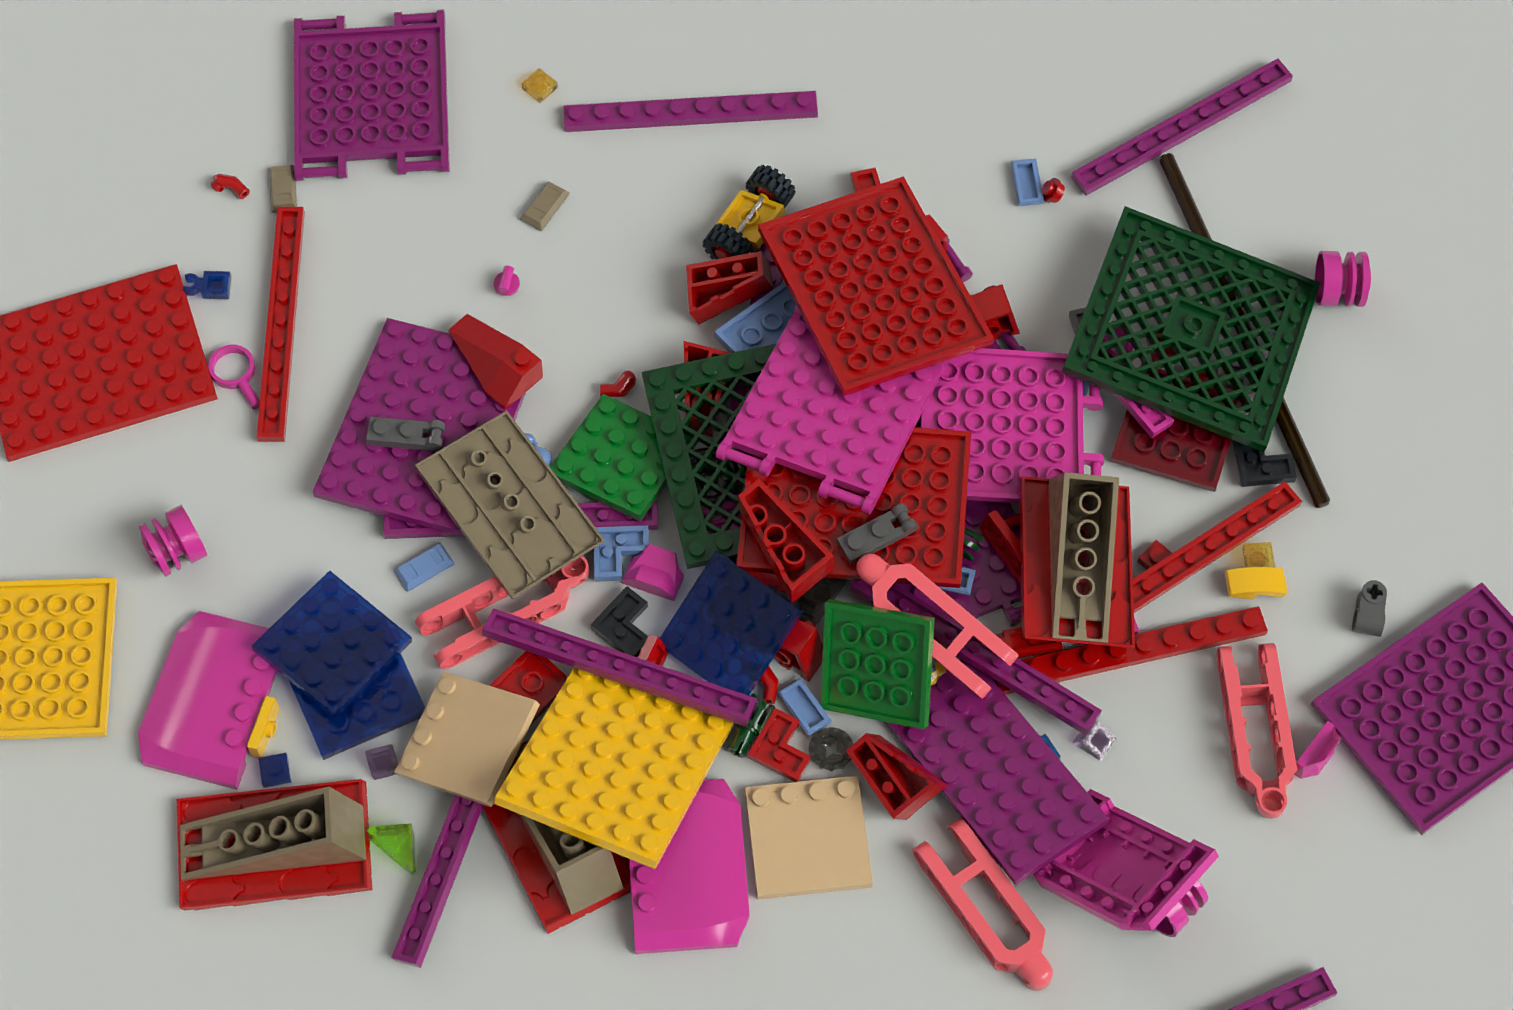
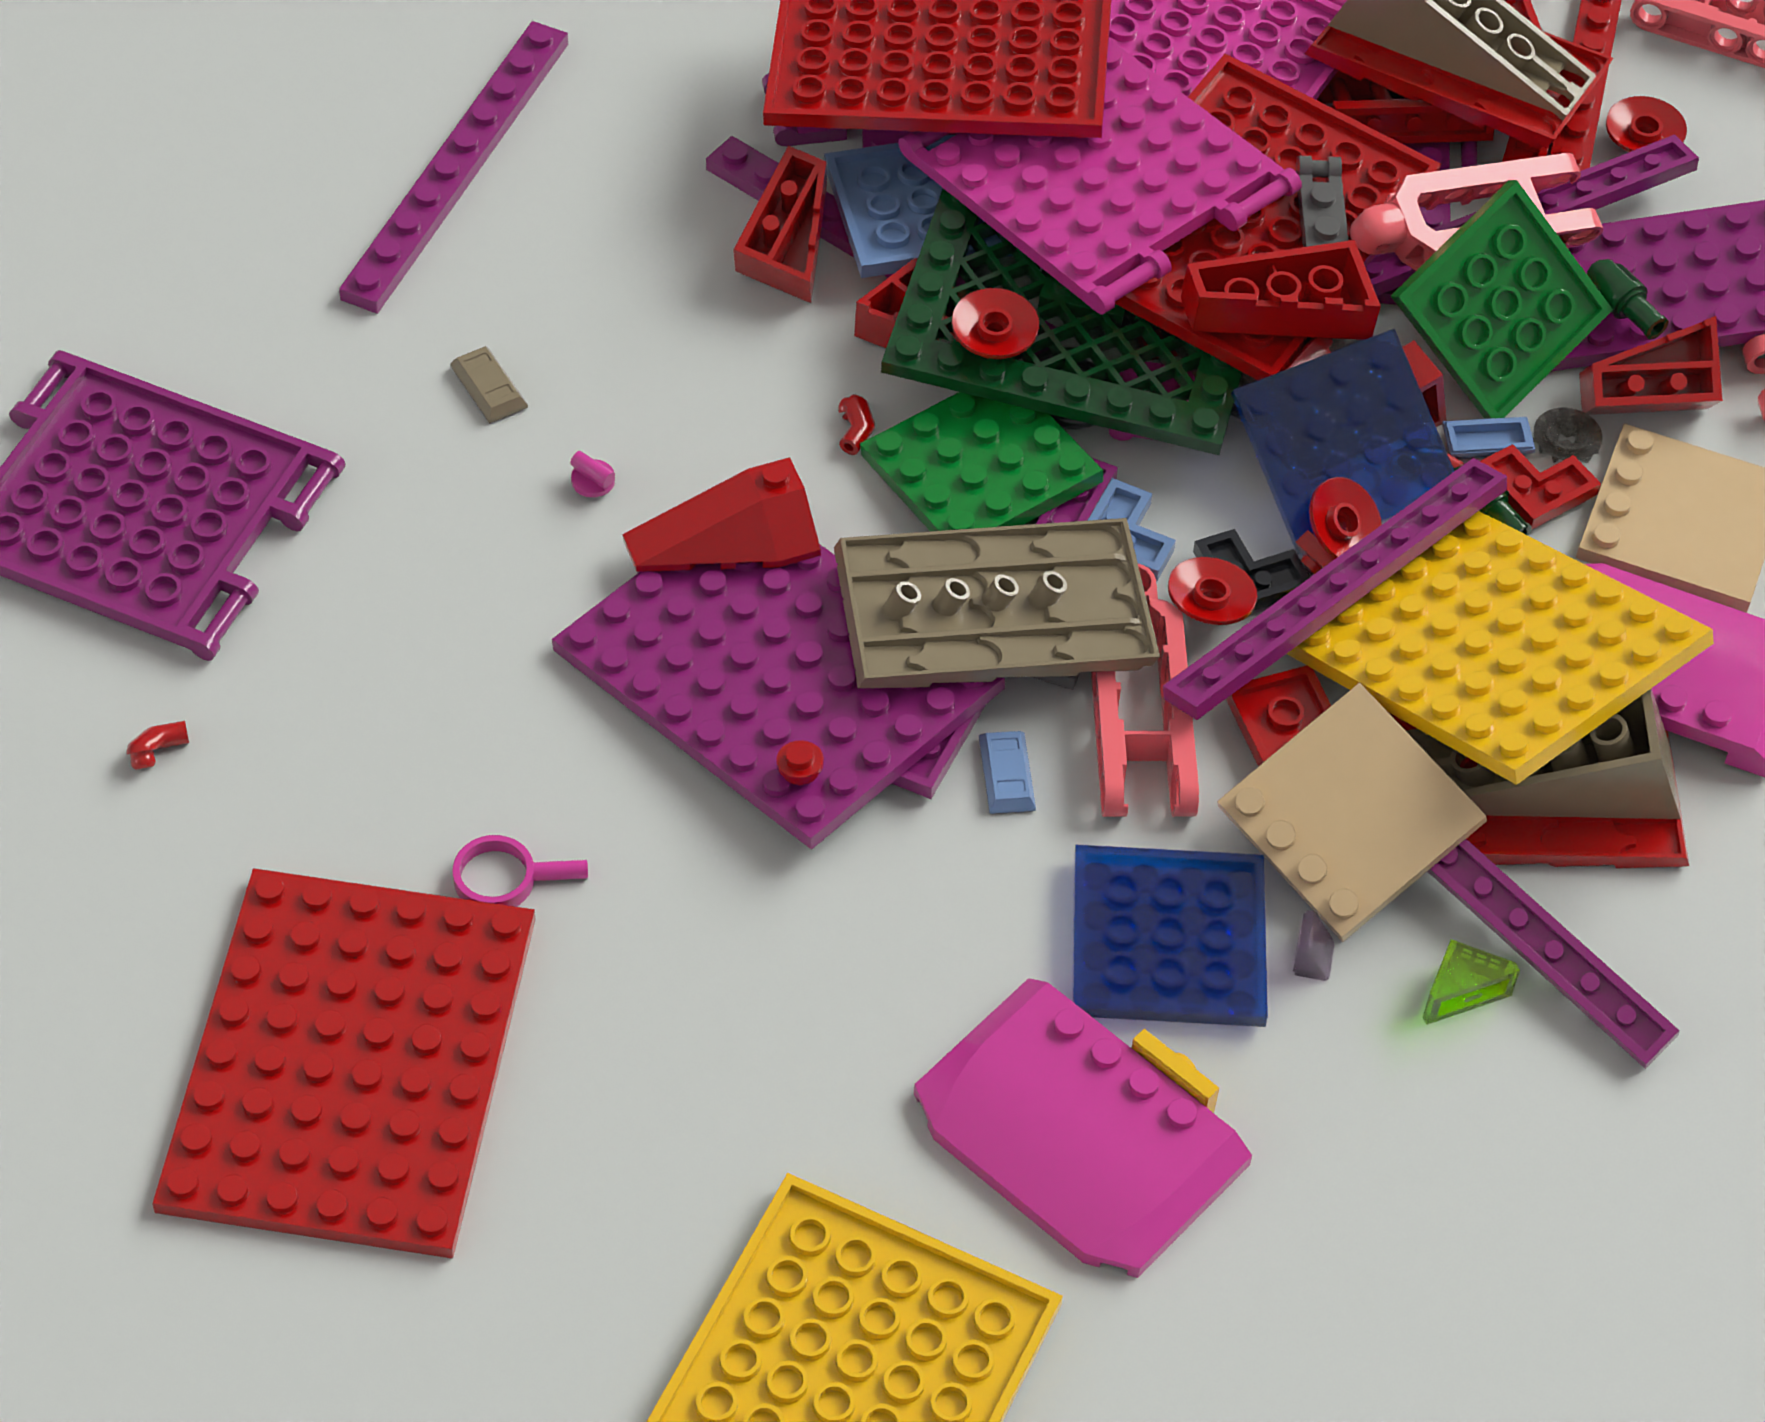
camera: 65 degrees left, 10 degrees down
(172, 540) = (781, 1055): dark pink wheel -> none
(212, 284) = (326, 835): clear blue plate -> none
(273, 845) = (1368, 1182): piece -> none
(274, 770) = (1248, 1096): clear blue plate -> none
(280, 325) = (466, 775): red plate -> none
(282, 187) = (213, 682): dark tan tile -> none
(332, 644) = (1091, 919): clear blue plate -> none
(350, 462) = (800, 762): none -> red plate
(405, 433) = (790, 680): dark grey plate -> none
(539, 85) = (278, 304): clear yellow plate -> none
(590, 596) = (1212, 590): none -> red dish
(655, 572) = (1187, 506): dark pink slope -> none
(682, 639) = (1342, 514): none -> red dish
(691, 400) = (995, 323): none -> red dish
(738, 226) = (694, 161): plate -> none
(864, 179) = (720, 34): red plate -> none
(938, 732) = (1627, 297): none -> dark green arm
(1096, 742) = (1692, 185): clear purple slope -> none
(1119, 684) = (1642, 121): none -> red dish

